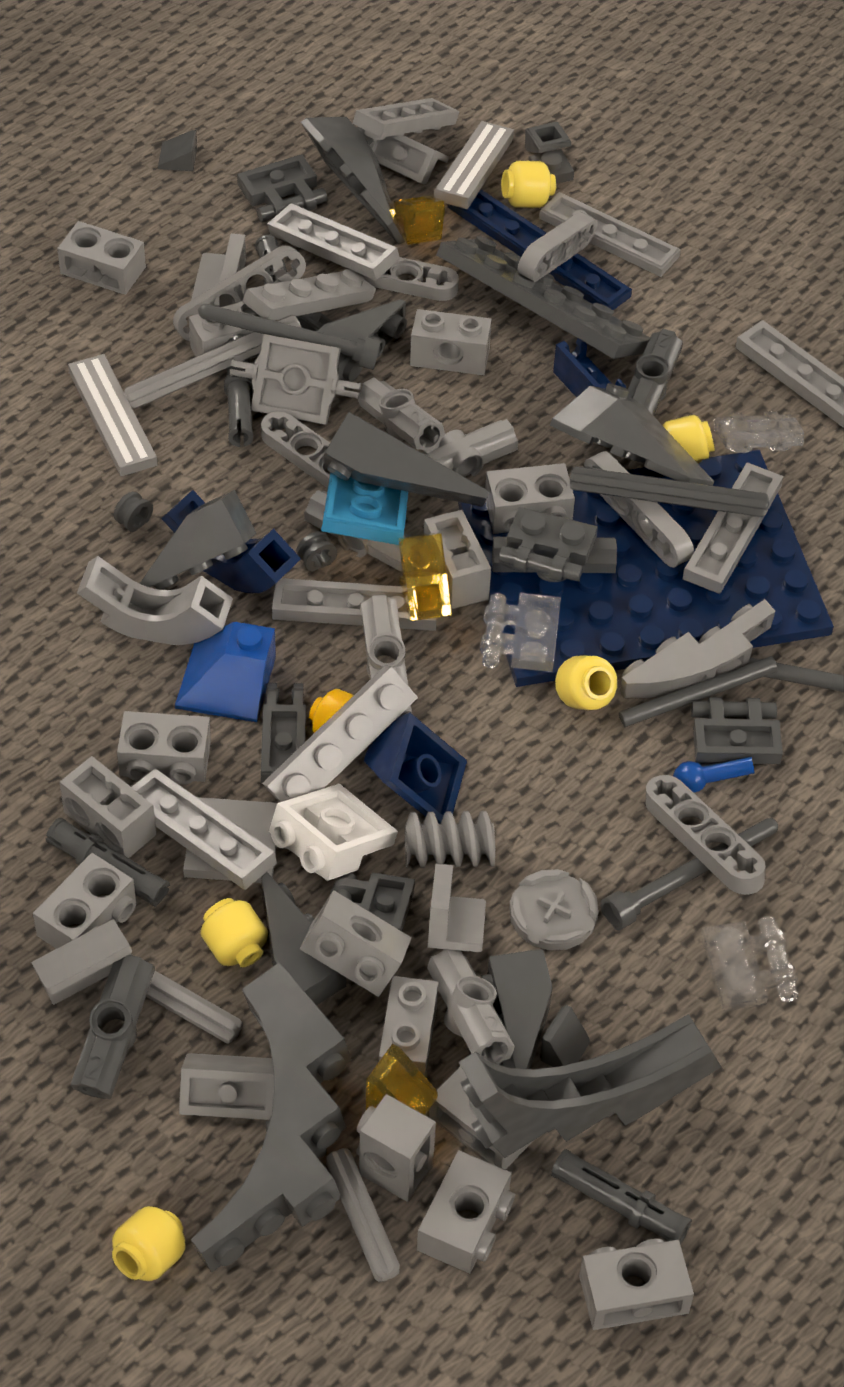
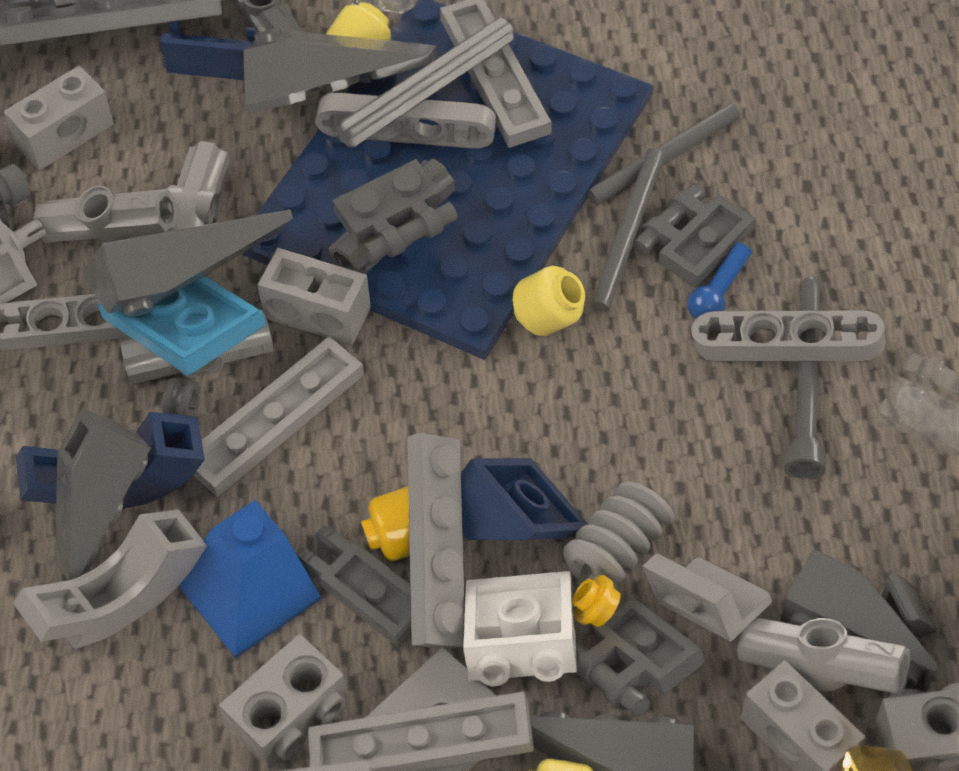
camera: 45 degrees left, 5 degrees up
(356, 943) = (688, 698): light grey brick -> none
(383, 636) = (345, 417): light grey piece -> none
(386, 856) = (595, 601): none -> yellow plate
(424, 577) = (320, 335): clear yellow slope -> none
(534, 635) = (459, 294): clear plate -> none
(535, 488) = (309, 184): light grey brick -> none
(553, 910) = (755, 511): light grey tile -> none
(686, 662) = (605, 196): light grey slope -> none

